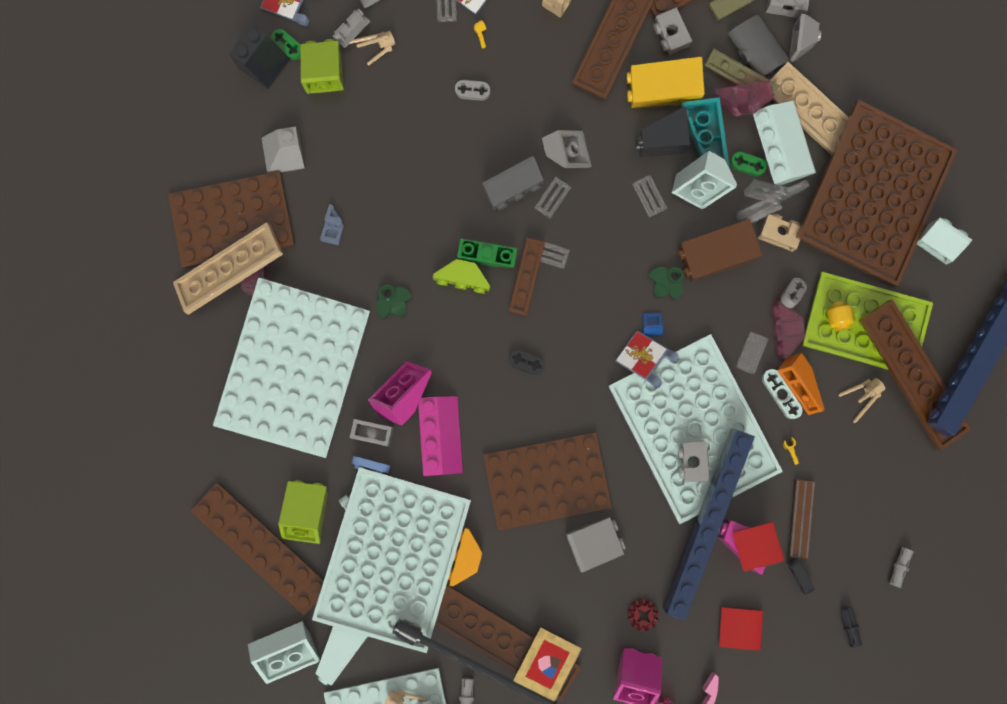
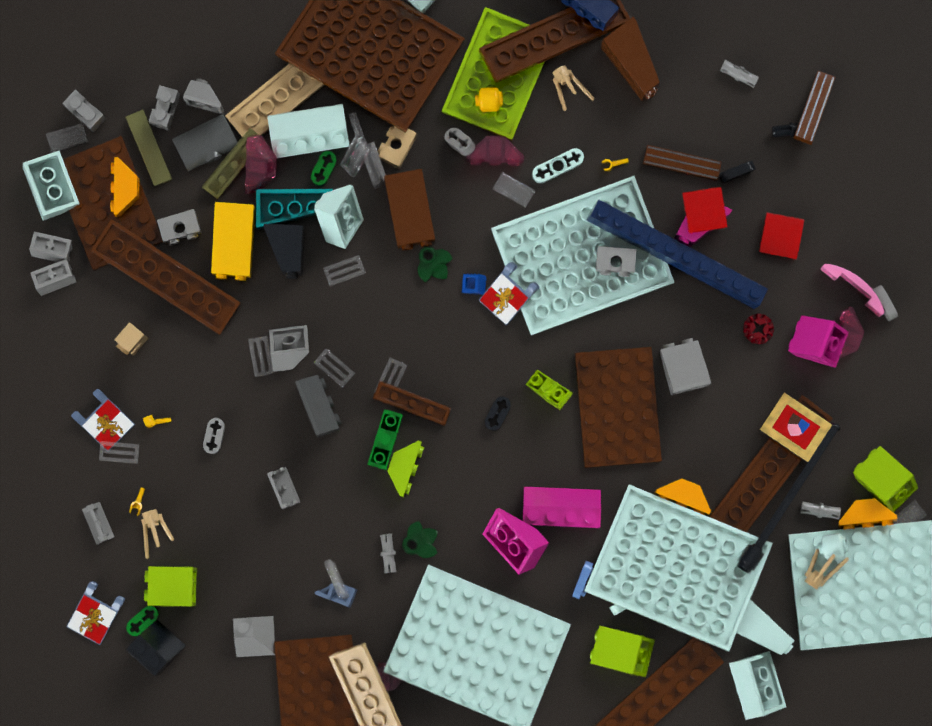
camera: 85 degrees left, 0 degrees up
(345, 222) = (336, 579): none -> clear tile
(349, 31) = (135, 552): light grey hinge -> none
(366, 432) = (551, 568): light grey brick -> none
(376, 271) = (388, 553): none -> light grey pin
(398, 25) = (137, 503): none -> yellow hand
(429, 161) = (283, 487): none -> light grey hinge
(552, 119) = (258, 340): none -> clear tile
(556, 410) = (549, 389): none -> lime slope
(802, 382) = (548, 145): orange slope -> none
(877, 648) = (814, 107): none -> reddish brown tile
(903, 454) = (630, 56): none -> reddish brown slope

